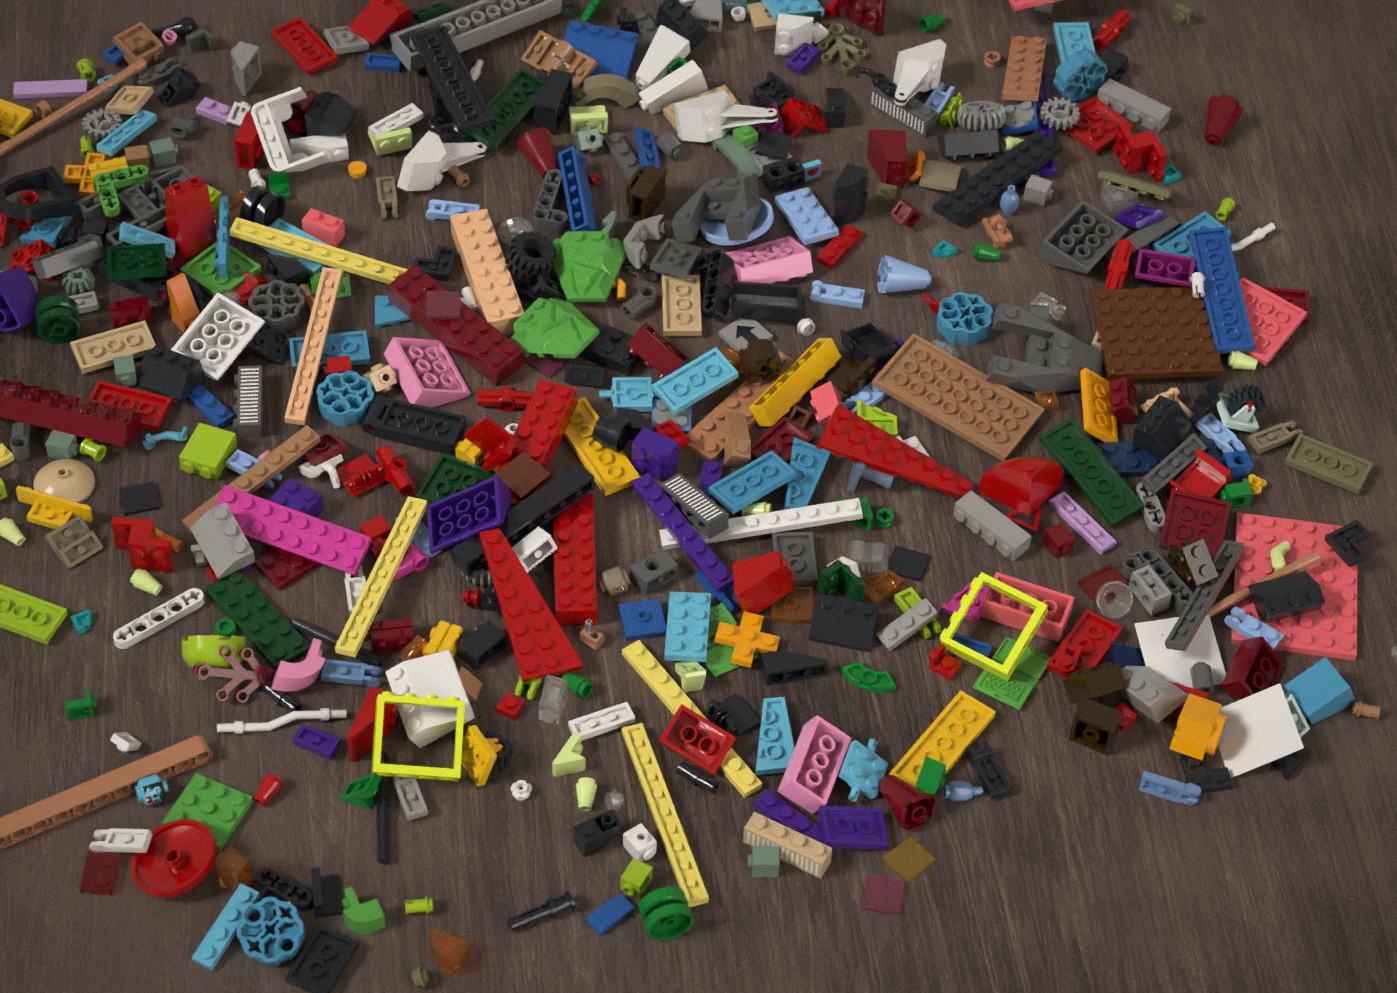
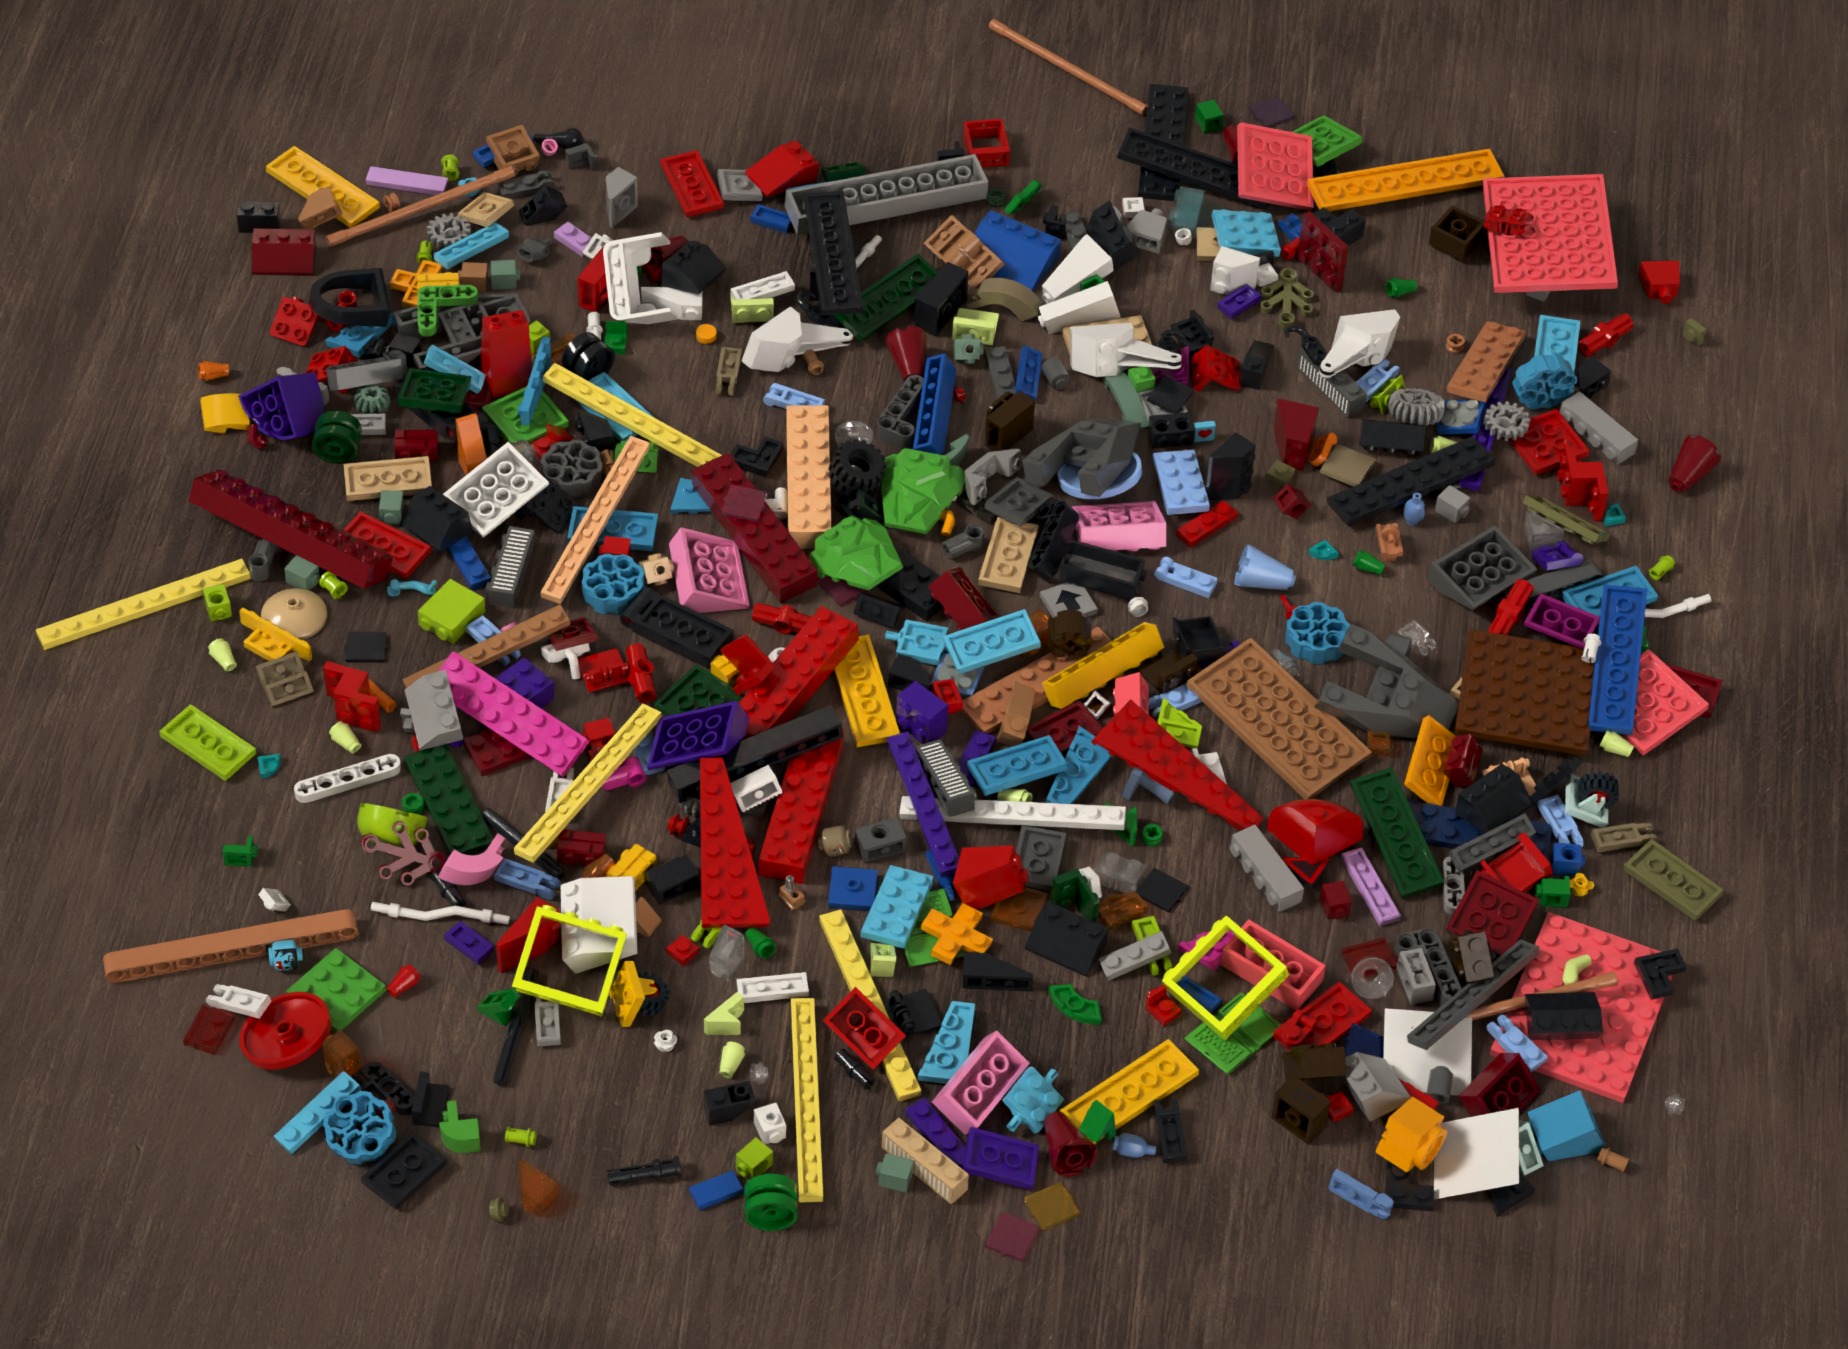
camera: 15 degrees right, 0 degrees up
(324, 227) = (648, 391): coral brick -> none
(523, 476) = (769, 707): copper tile -> none
(612, 432) = (882, 679): black piece -> none

